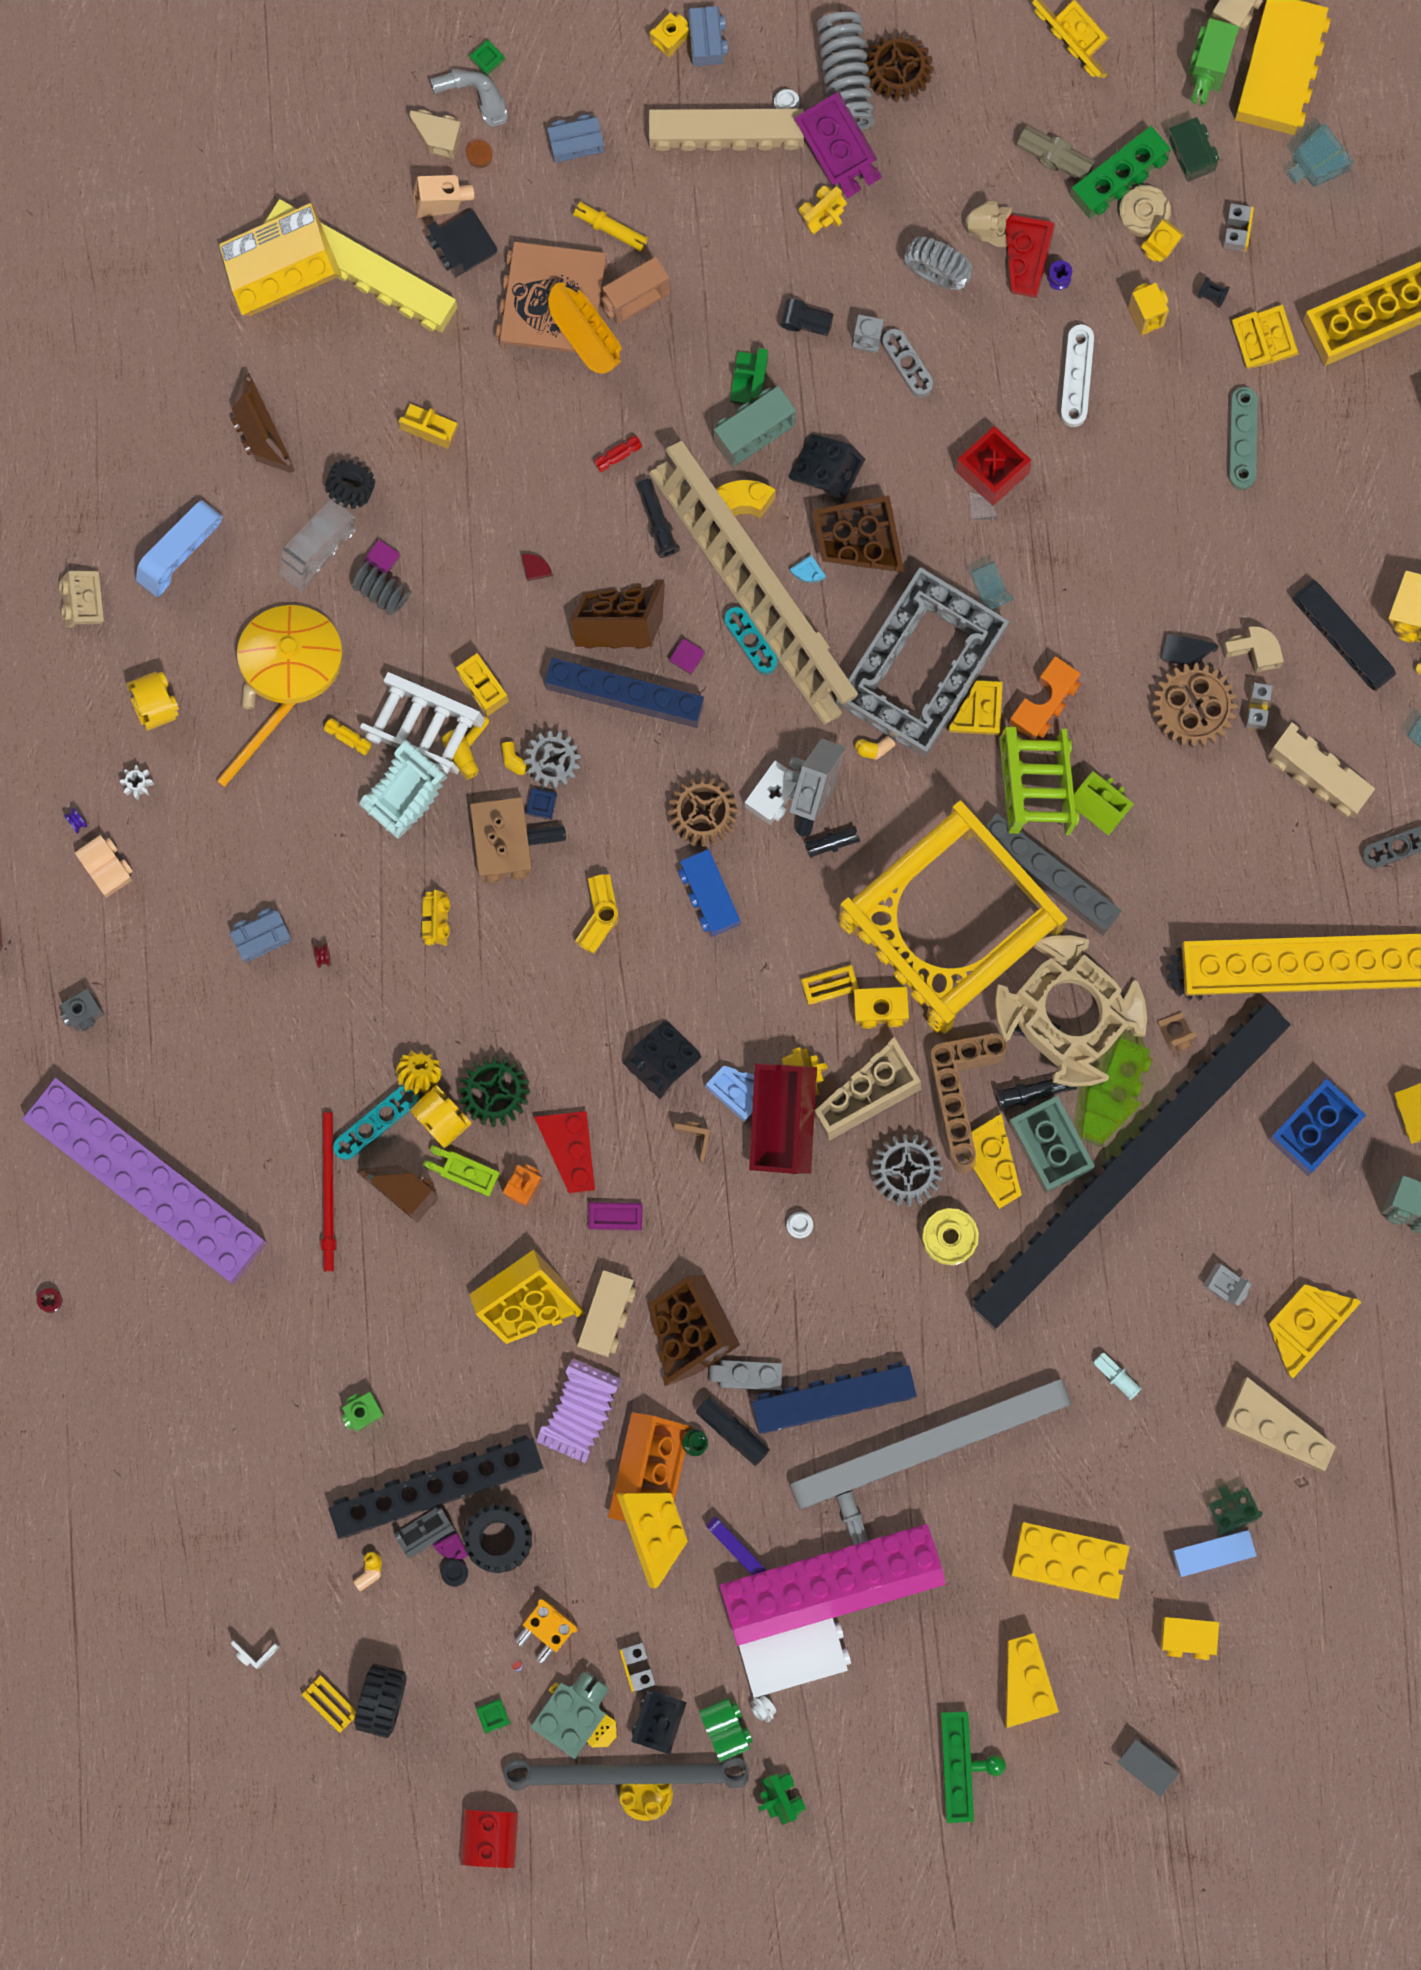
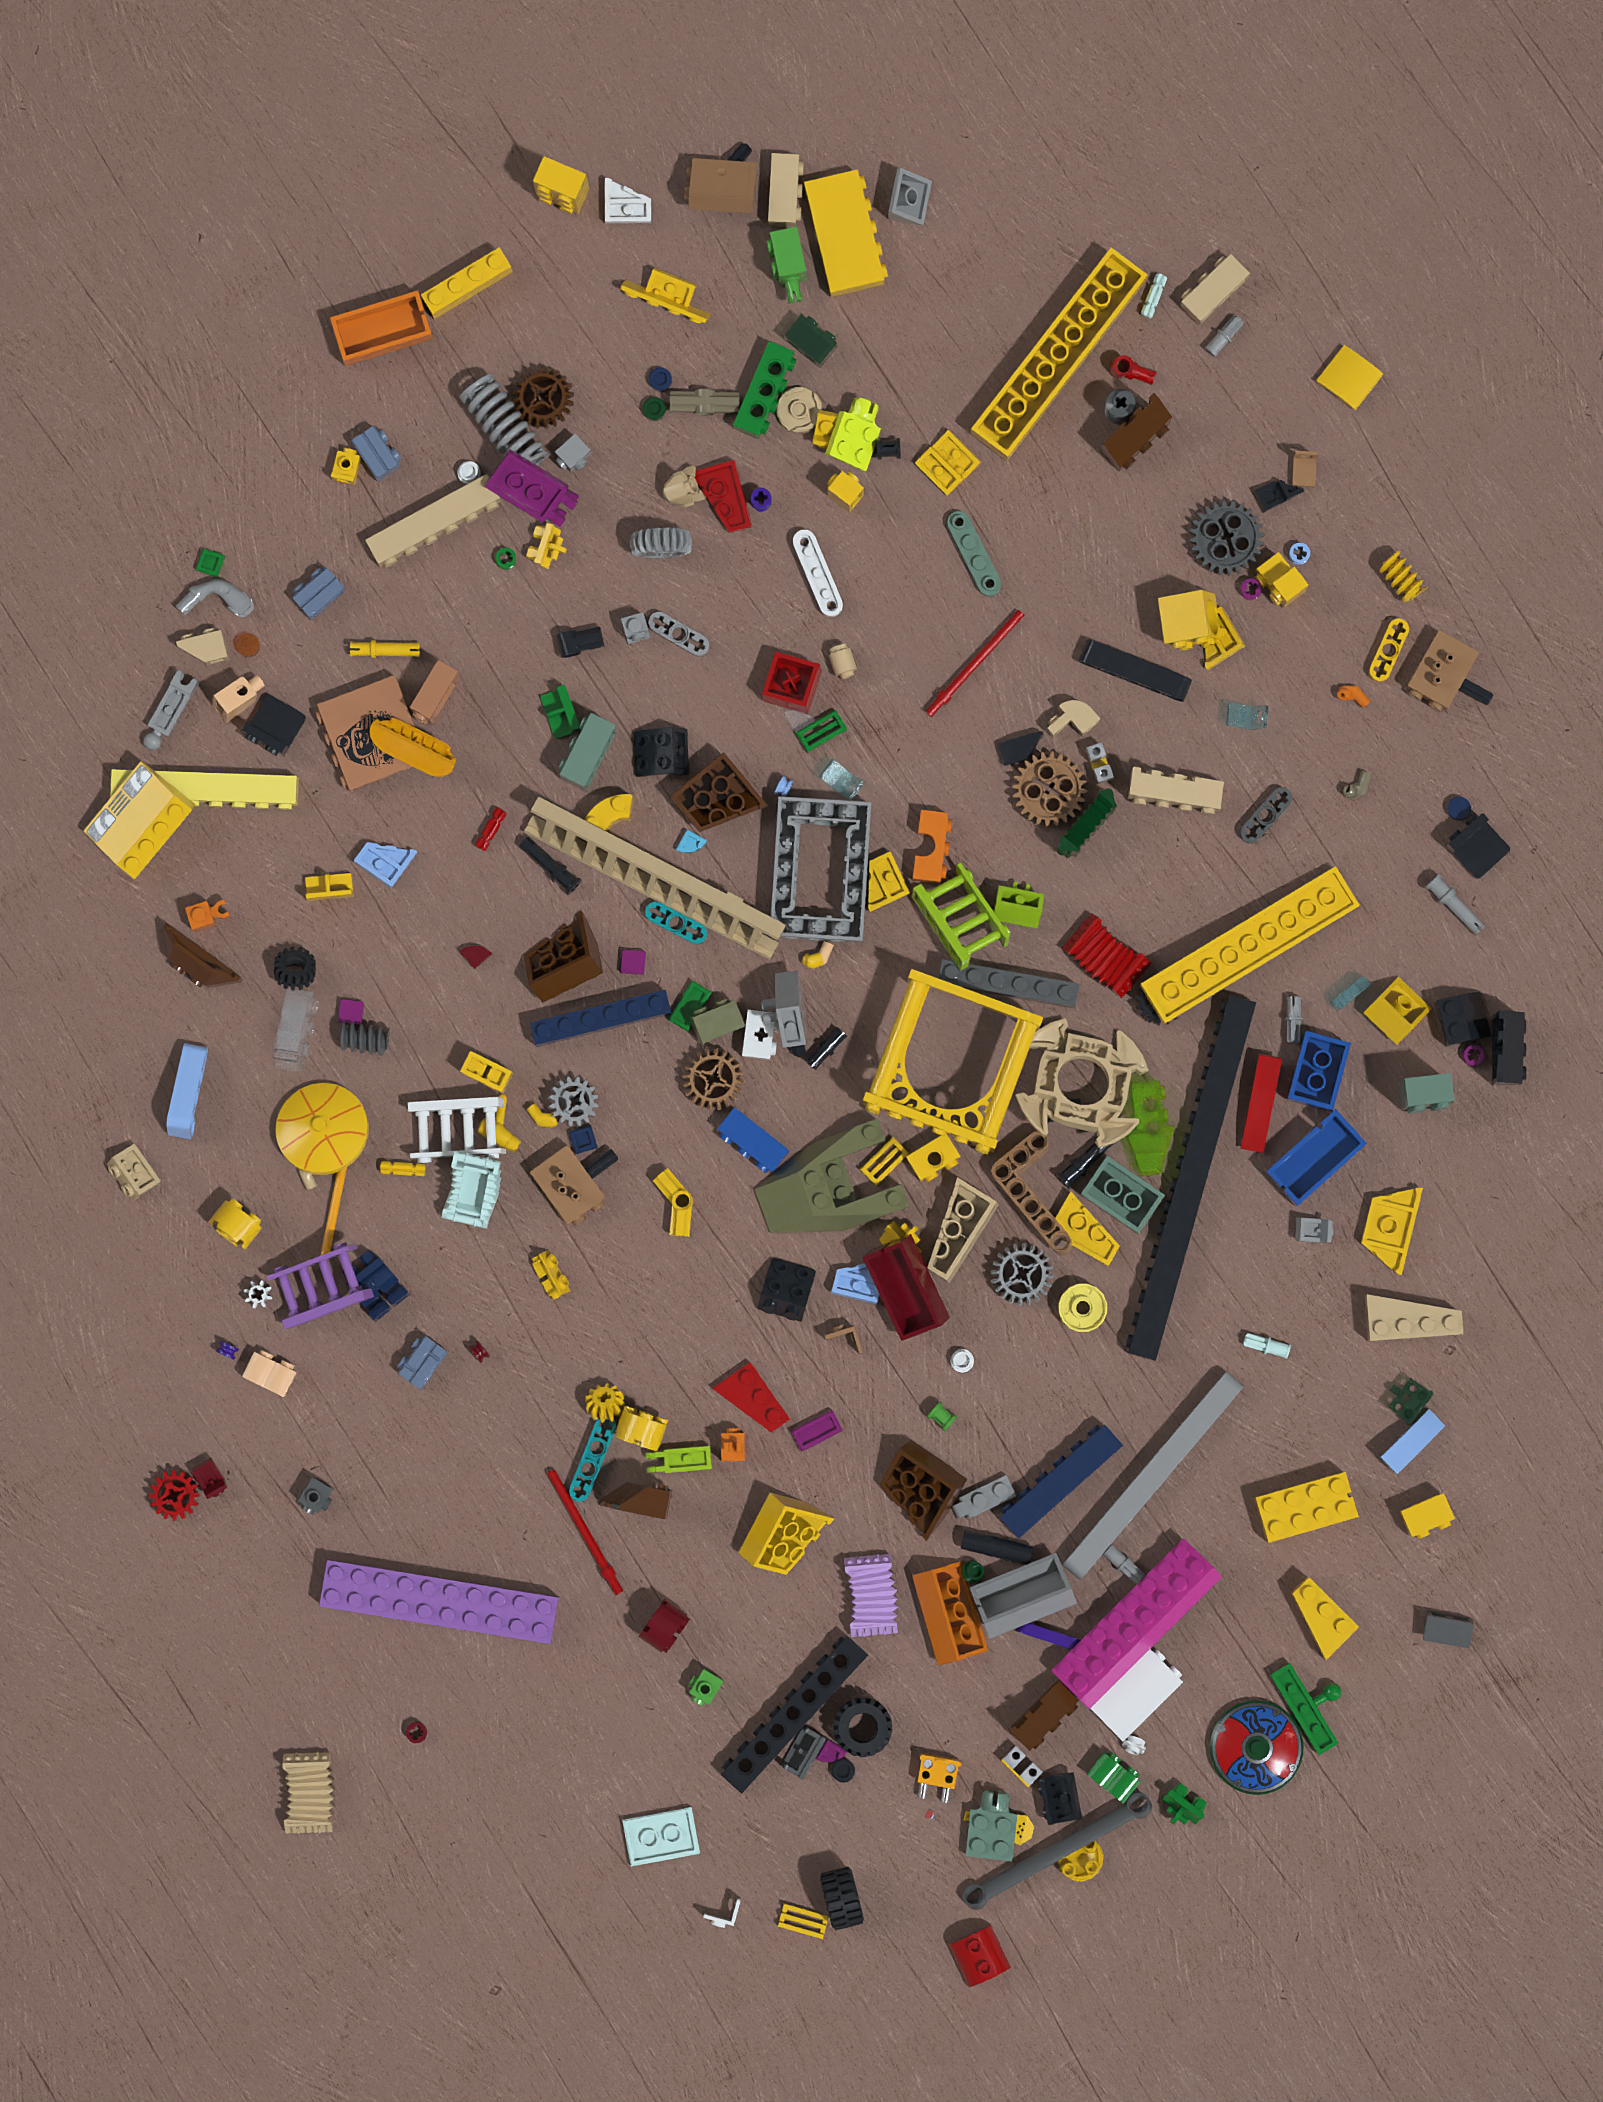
camera: 25 degrees left, 5 degrees up
(208, 827) = (336, 1301): none -> medium lavender fence
(235, 1539) = (661, 1836): none -> light aqua tile
(255, 826) = (379, 1276): none -> dark blue hips
(289, 387) = (203, 915): none -> orange brick
(353, 1326) = (663, 1625): none -> dark red brick
(369, 174) = (169, 710): none -> light grey plate
(372, 1571) = (780, 1804): arm -> none
(493, 1716) = (932, 1862): green tile -> none
(496, 430) = (384, 862): none -> light blue wing
(505, 1096) = (686, 1382): dark green gear -> none
(607, 1314) = (852, 1510): tan brick -> none
(654, 1531) = (979, 1657): yellow wing -> none
(688, 1628) = (1044, 1716): none -> reddish brown wedge
(719, 729) = (692, 999): none -> green tile
(732, 1493) = (1023, 1595): none -> light grey piece
(738, 755) = (717, 1020): none -> olive brick
(746, 979) = (816, 1191): none -> olive wedge
(749, 1269) = (941, 1416): none -> bright green bush
(776, 210) = (508, 565): none -> green bush
(887, 1780) = (1256, 1747): none -> dish
(898, 135) = (572, 454): none -> light grey brick
(930, 563) = (783, 787): none -> light blue bush
(997, 531) = (804, 741): none -> green tile
(1002, 136) = (654, 409): none -> dark green tile
(1023, 111) = (660, 379): none -> dark blue tile
(1055, 472) = (842, 661): none -> tan brick
(1139, 560) = (944, 696): none -> red bar
(1161, 900) = (1105, 957): none -> red piece
(1181, 1042) = (1178, 1060): medium nougat bracket -> none
(1187, 260) = (855, 434): none -> neon yellow plate
(1214, 757) = (1087, 824): none -> dark green piece
(1241, 1128) = (1261, 1103): none -> red slope
(1244, 219) = (882, 375): flat silver piece -> none
(1268, 1212) = (1316, 1158): none -> blue piece
(1319, 1063) = (1294, 1019): none -> light grey axle
(1320, 158) = (915, 295): clear light blue torso -> none
(1364, 62) = (909, 197): none -> light grey slope
(1391, 1068) = (1350, 993): none -> clear light blue beam

